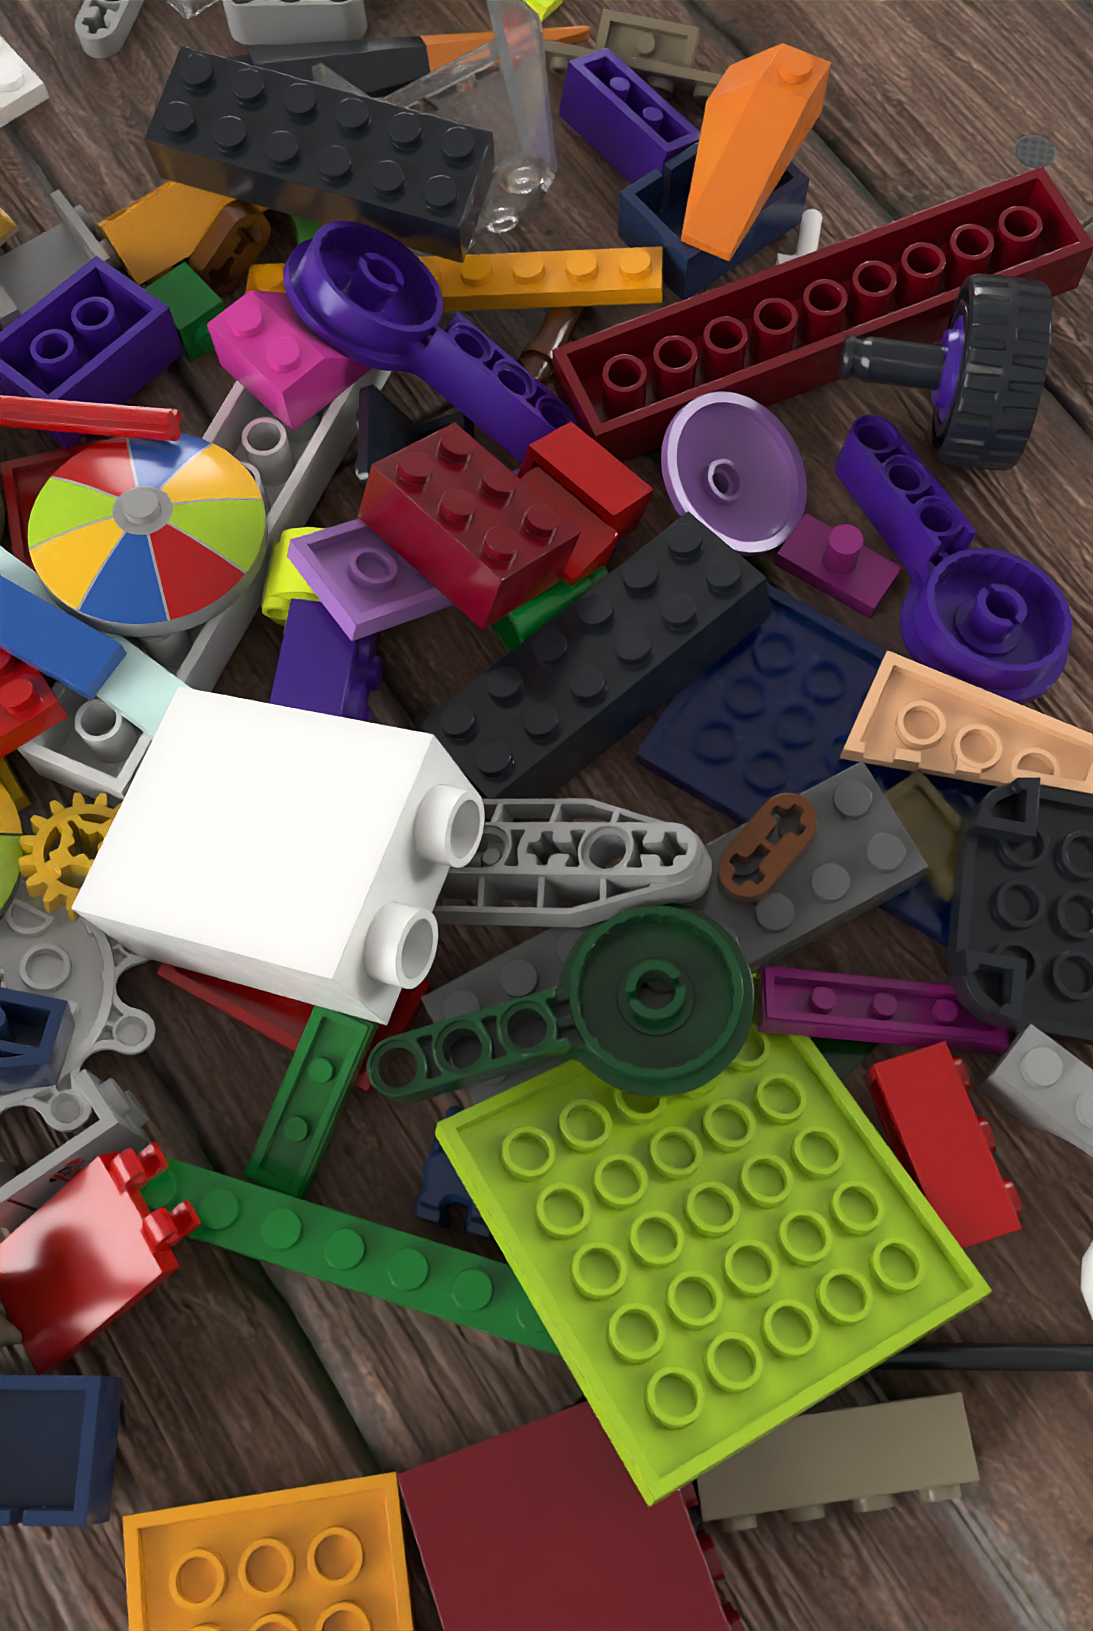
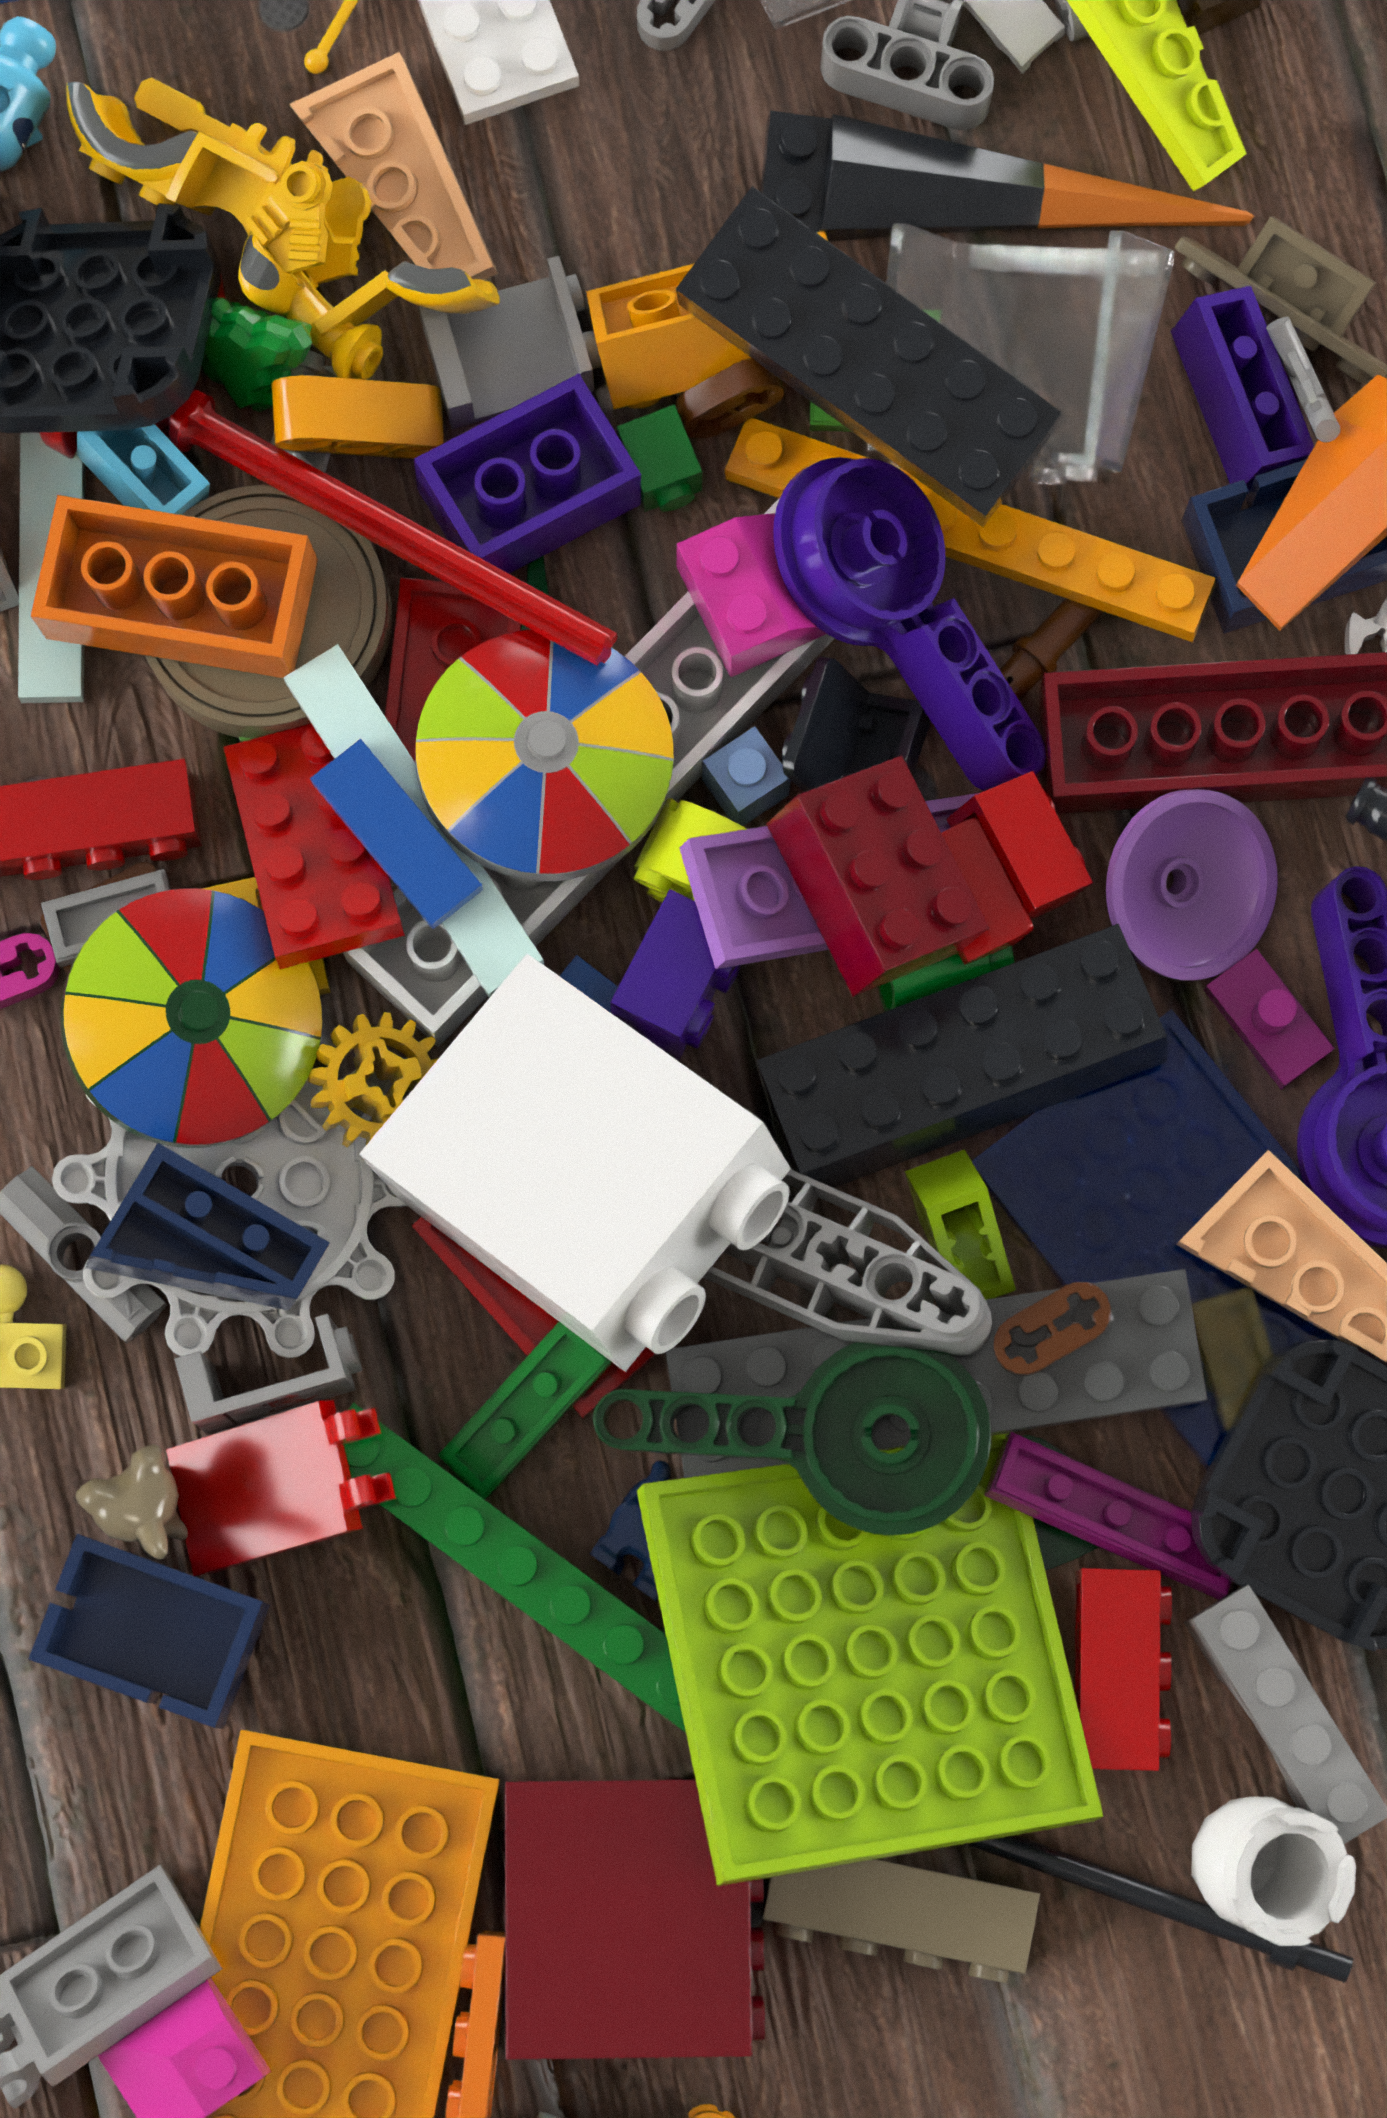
camera: 15 degrees right, 10 degrees up
(328, 501) = (745, 777): none -> light blue brick
(643, 785) = (961, 1221): none -> lime arch
(682, 96) = (1304, 379): none -> light grey piece

